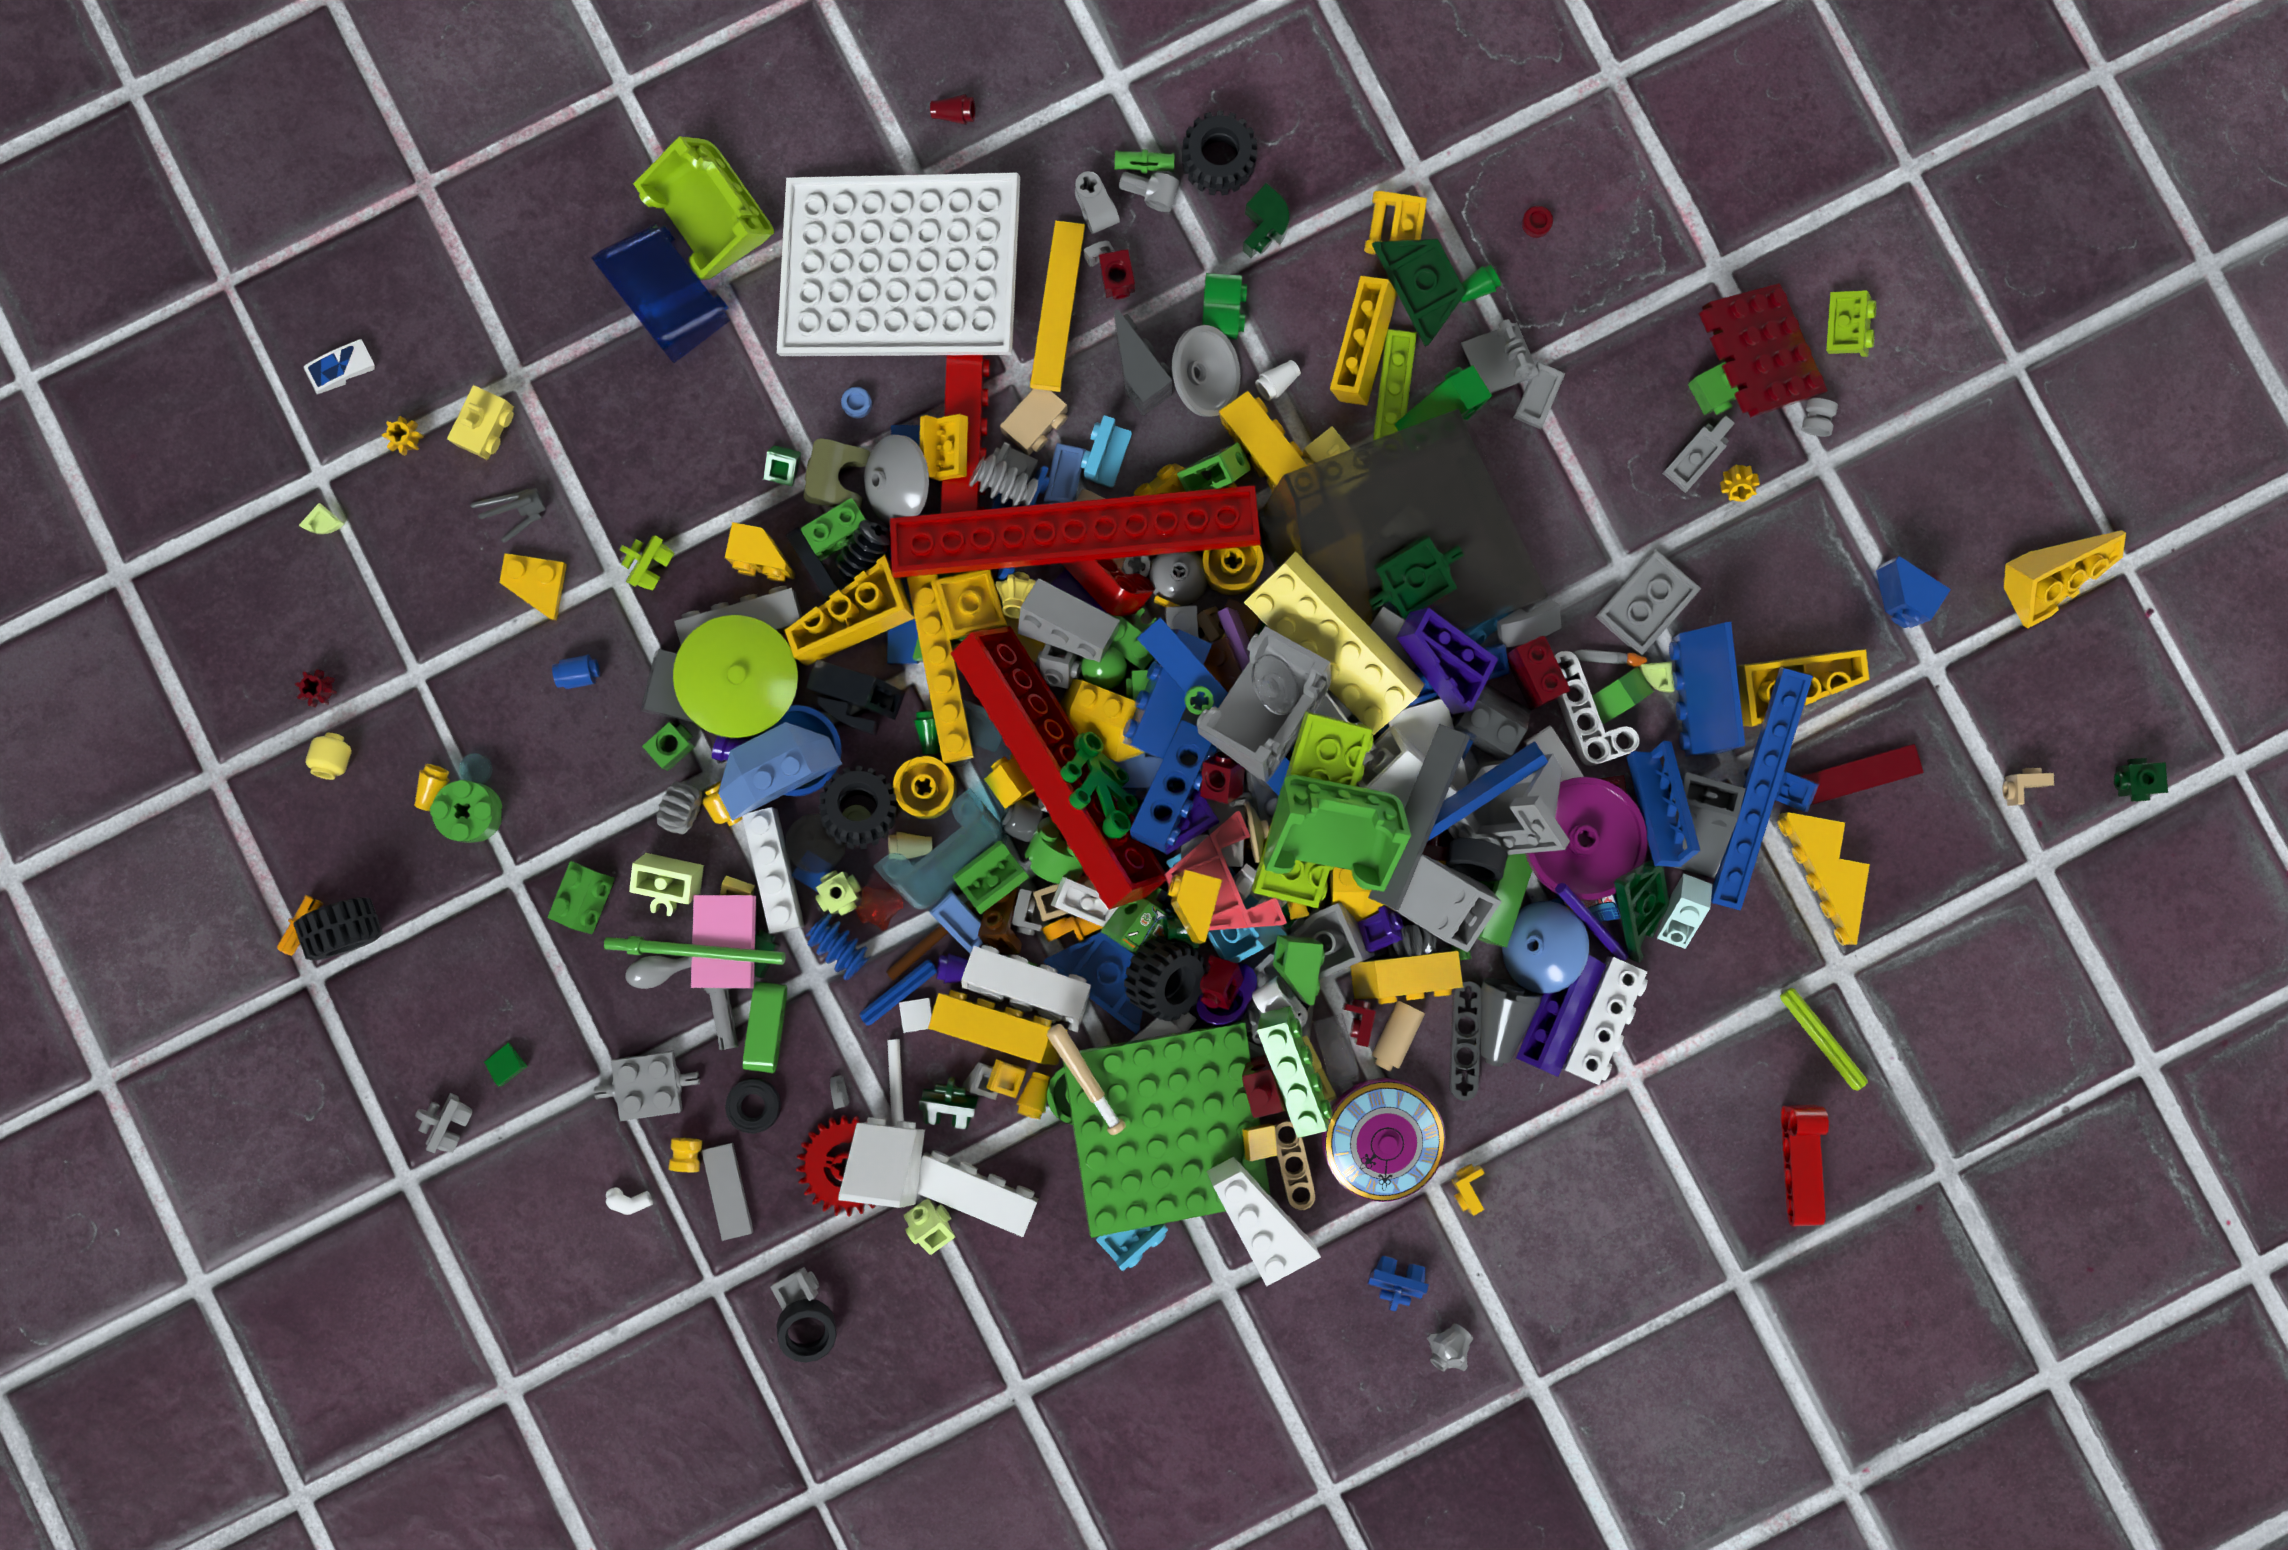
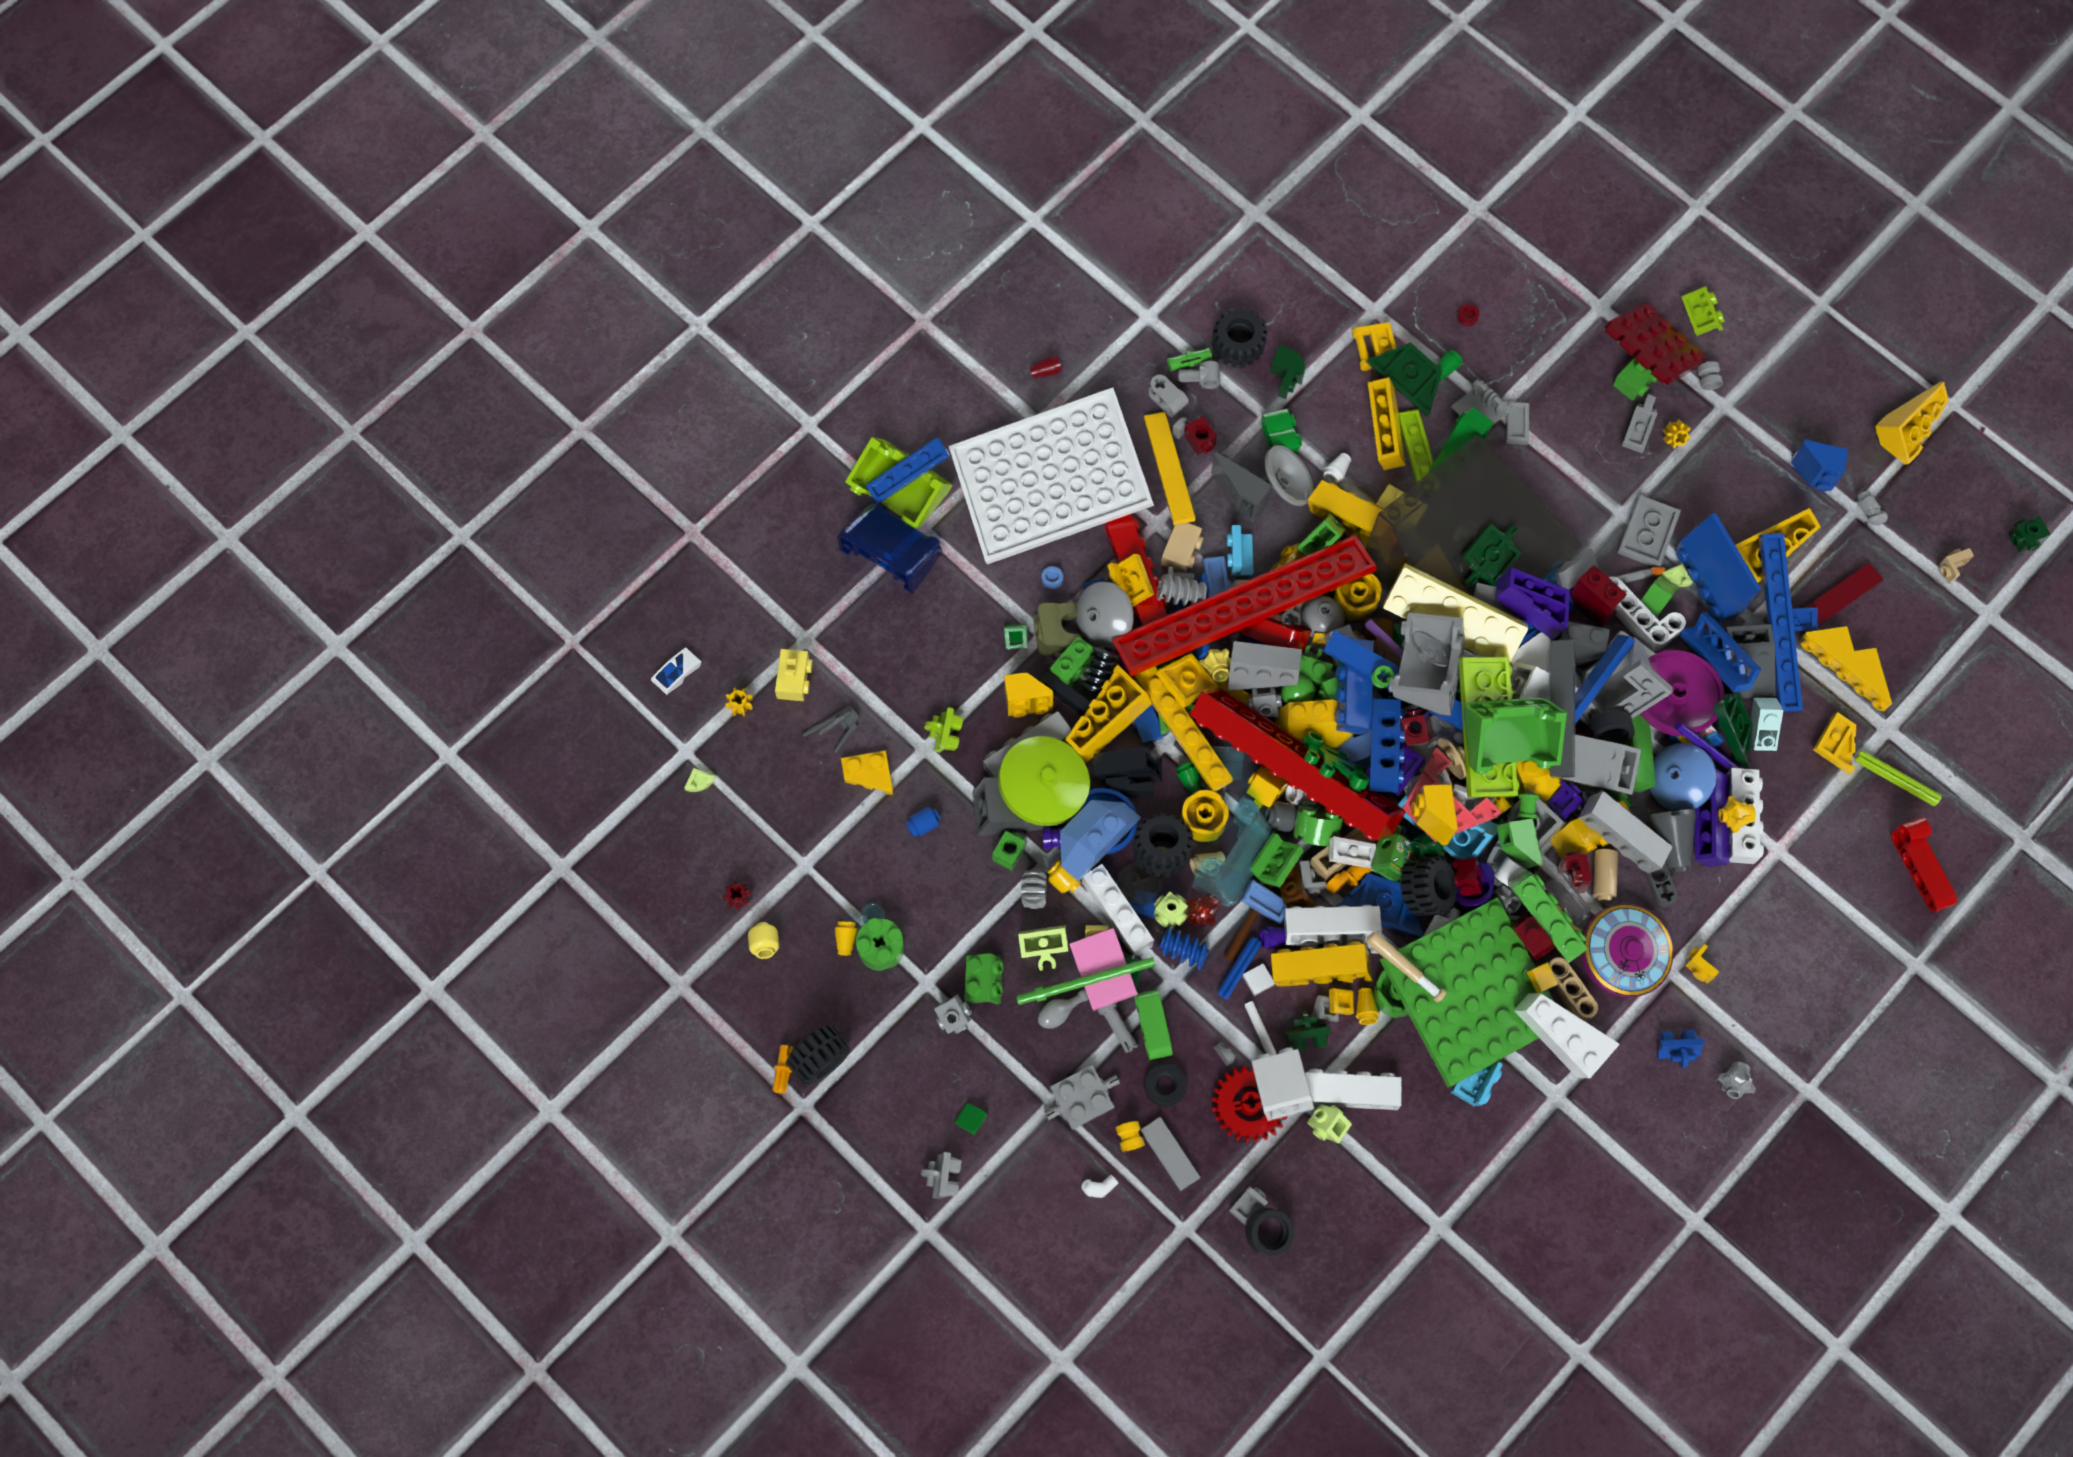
camera: 20 degrees left, 15 degrees down
(524, 931) = (960, 1010): none -> light grey brick
(718, 196) = (908, 470): none -> blue tile
(1325, 925) = (1527, 806): none -> bright green bush
(1437, 998) = (1625, 832): none -> light grey brick
(1589, 1023) = (1736, 814): none -> yellow rock
(1767, 967) = (1838, 742): none -> yellow wing
(1951, 670) = (1871, 508): none -> light grey arm

